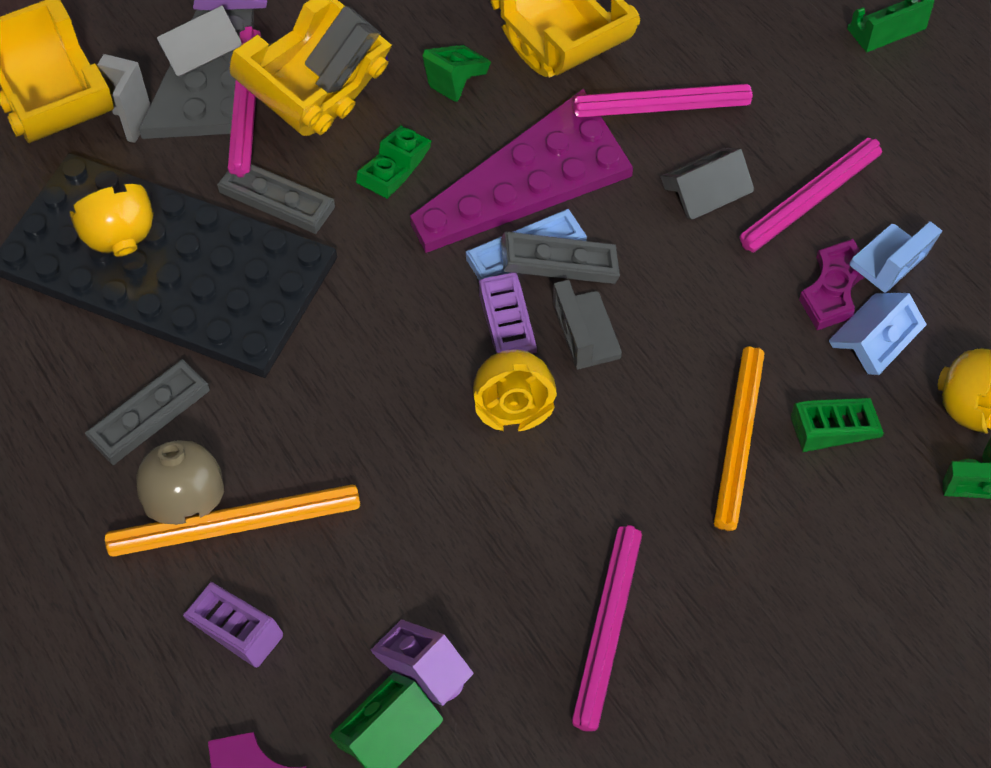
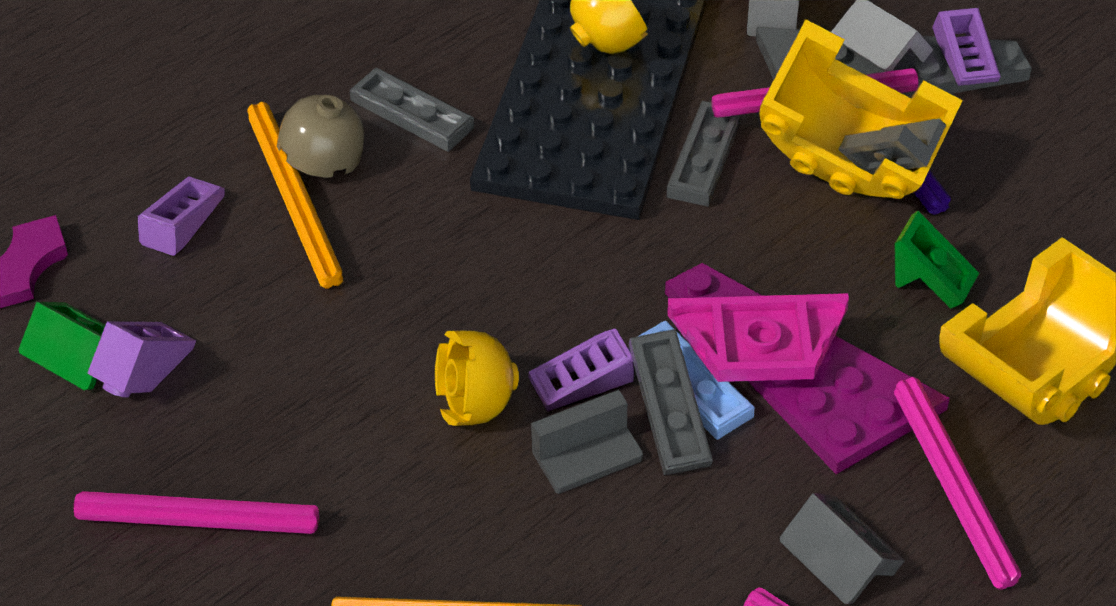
camera: 80 degrees right, 10 degrees down
(396, 161) = (792, 246): green slope -> none
(514, 182) = (760, 334): none -> dark pink wing

